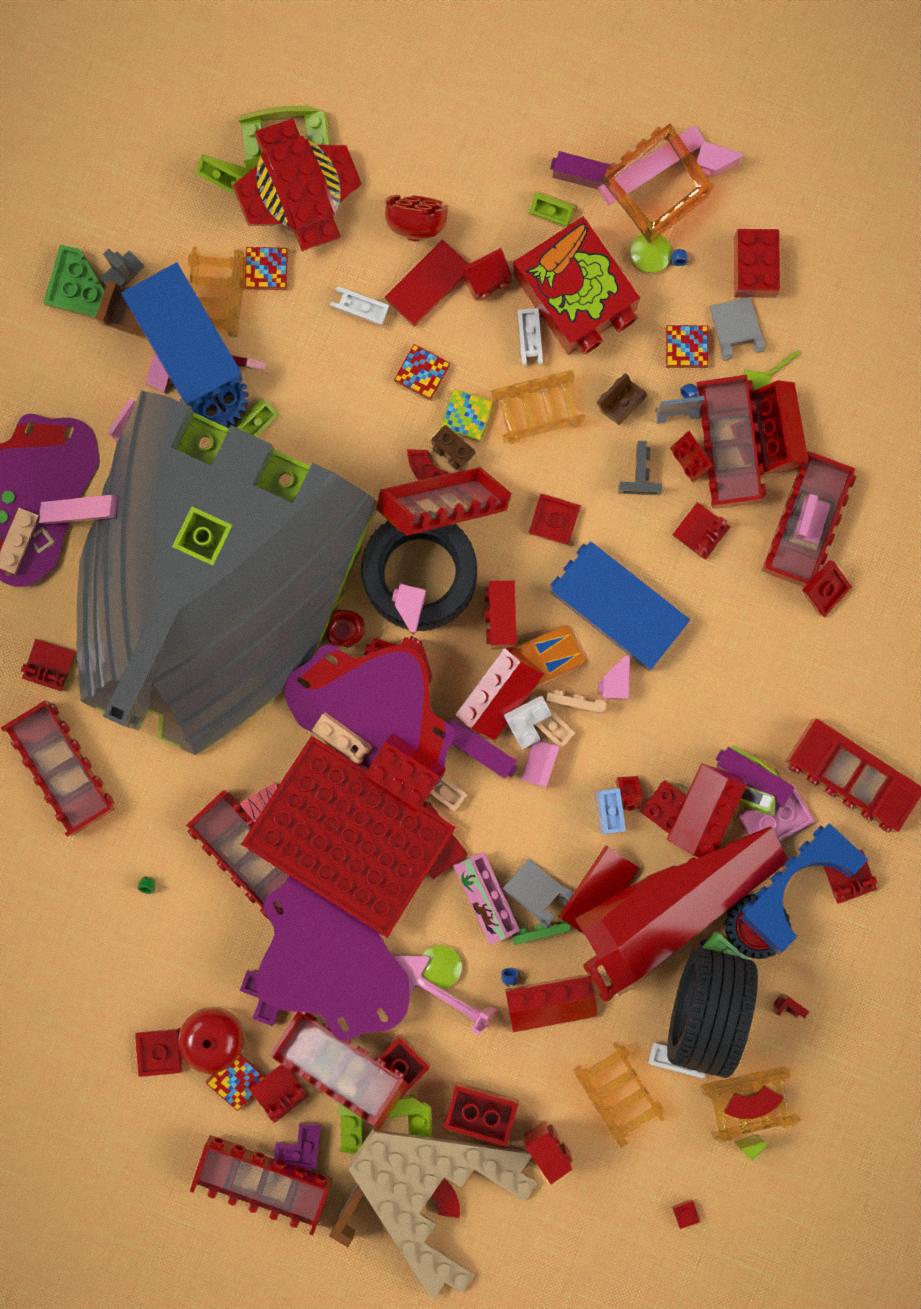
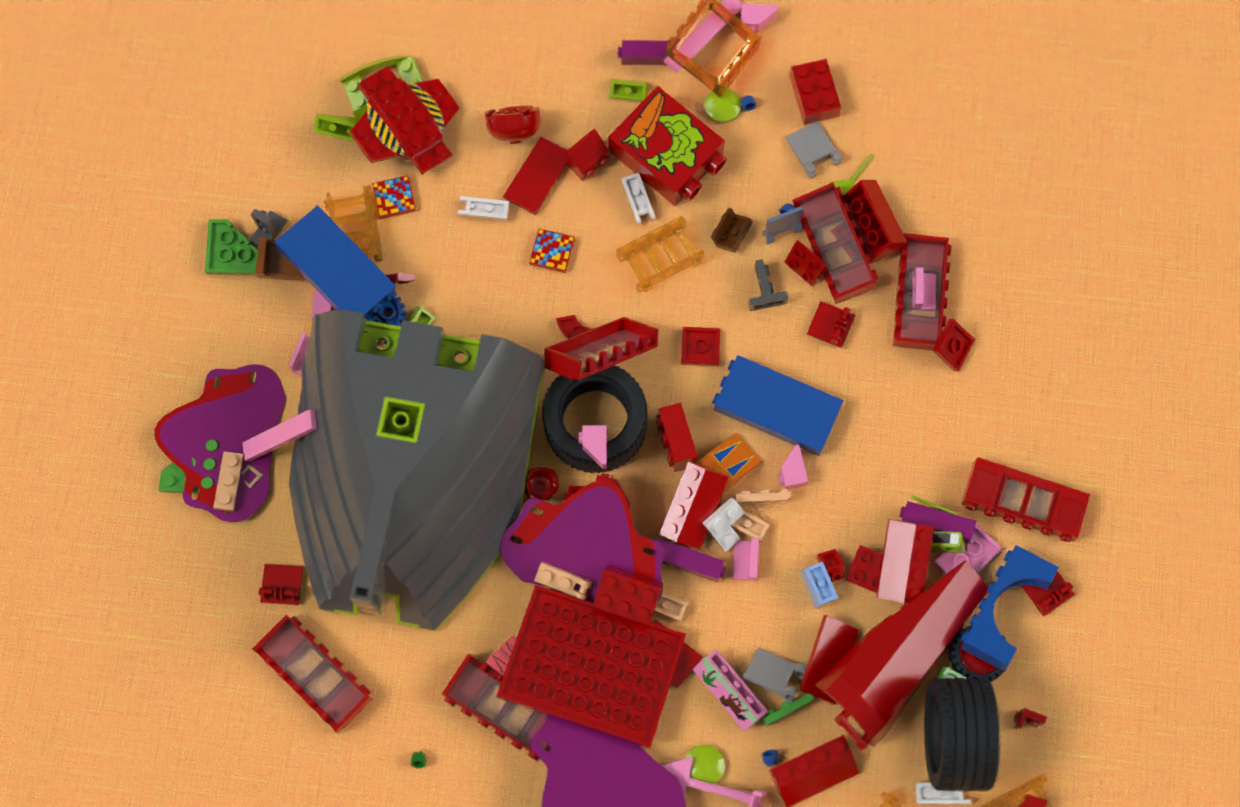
camera: 15 degrees left, 10 degrees down
(453, 447) = (595, 306): reddish brown bracket -> none
(467, 414) = (600, 277): tile -> none
(686, 346) = (775, 174): tile -> none

